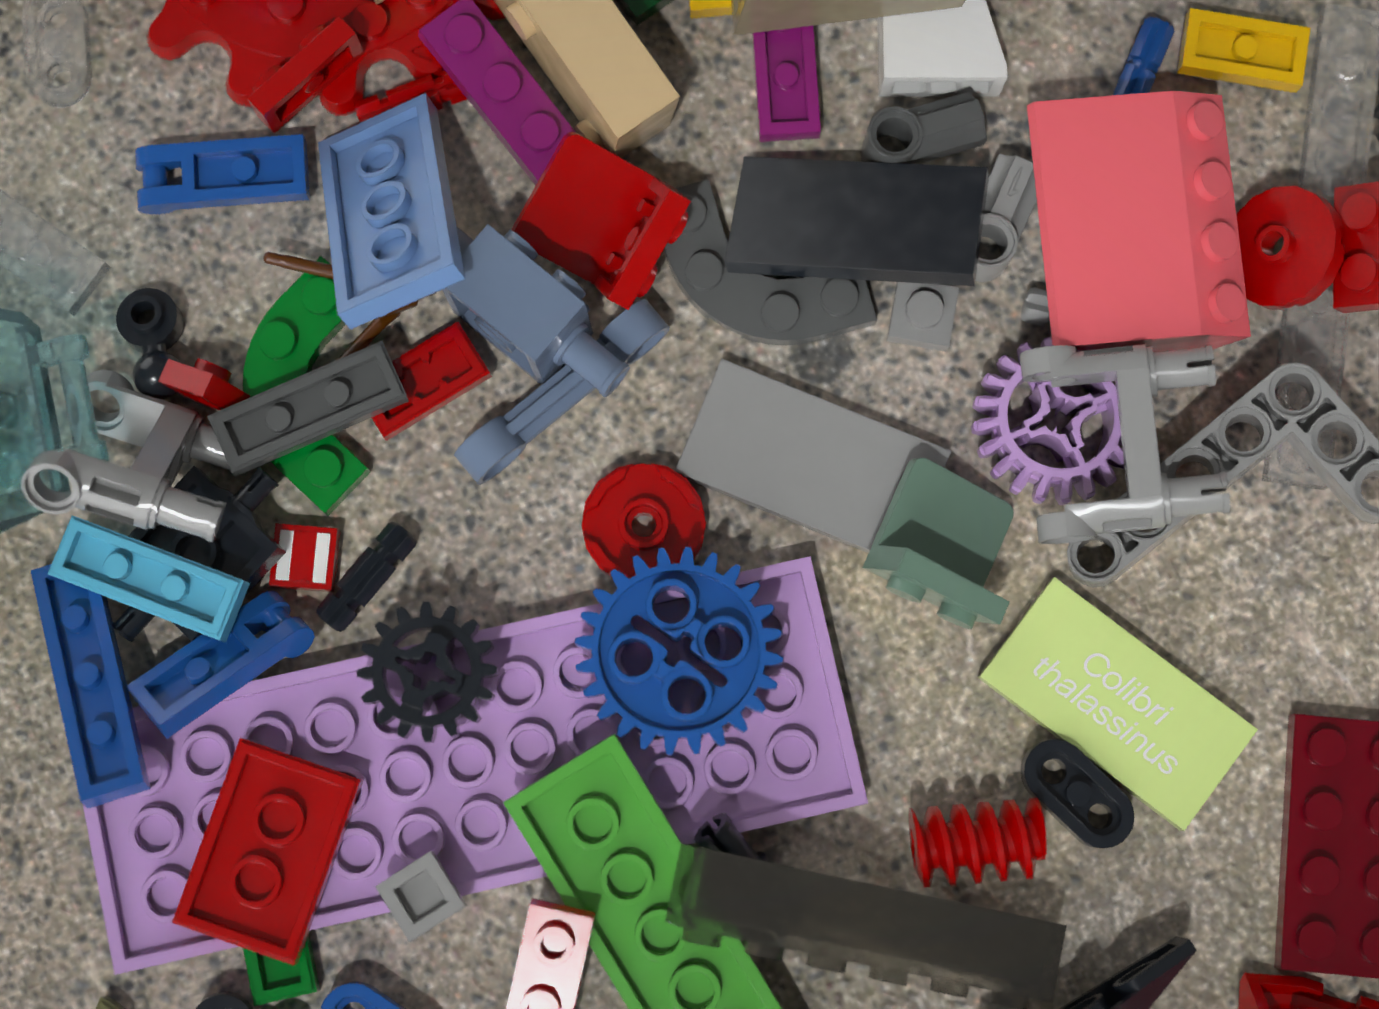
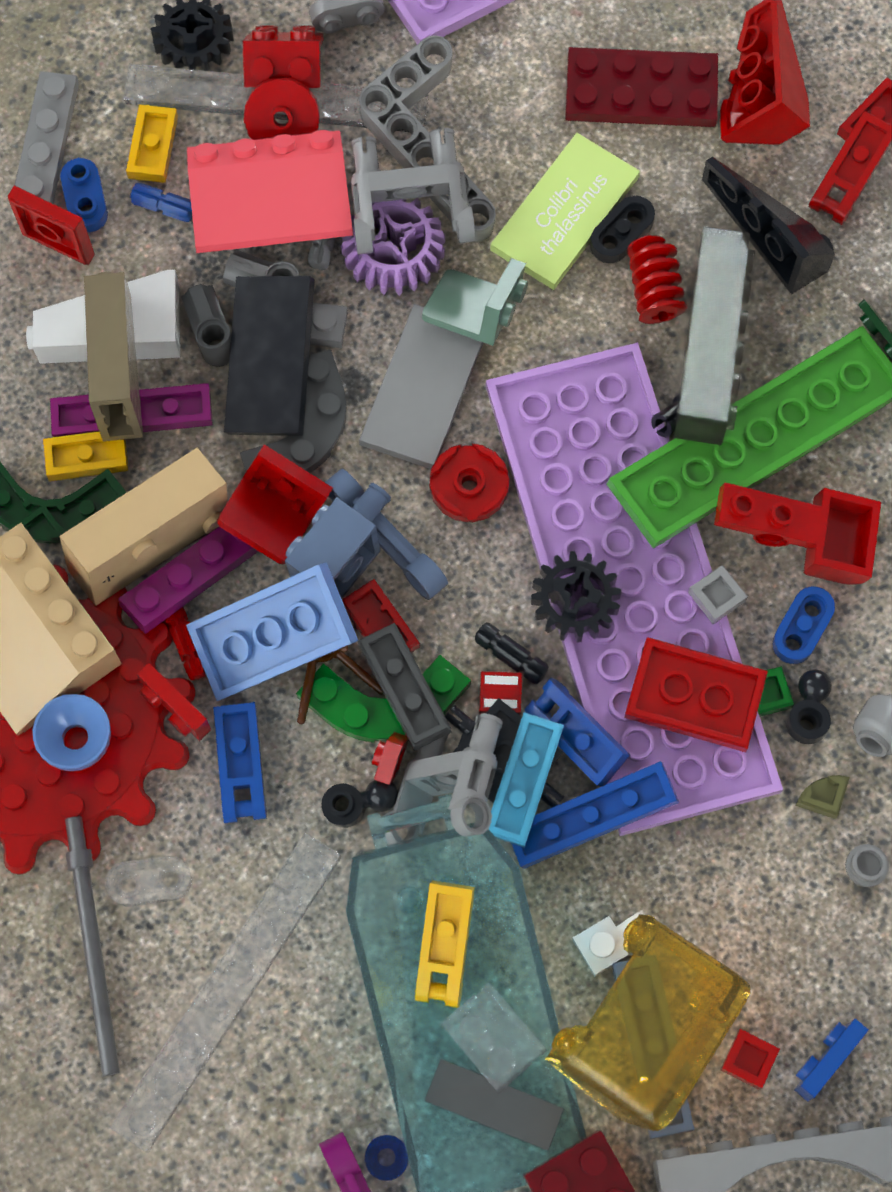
camera: 90 degrees left, 10 degrees down
(713, 604) = (520, 430): blue gear -> none

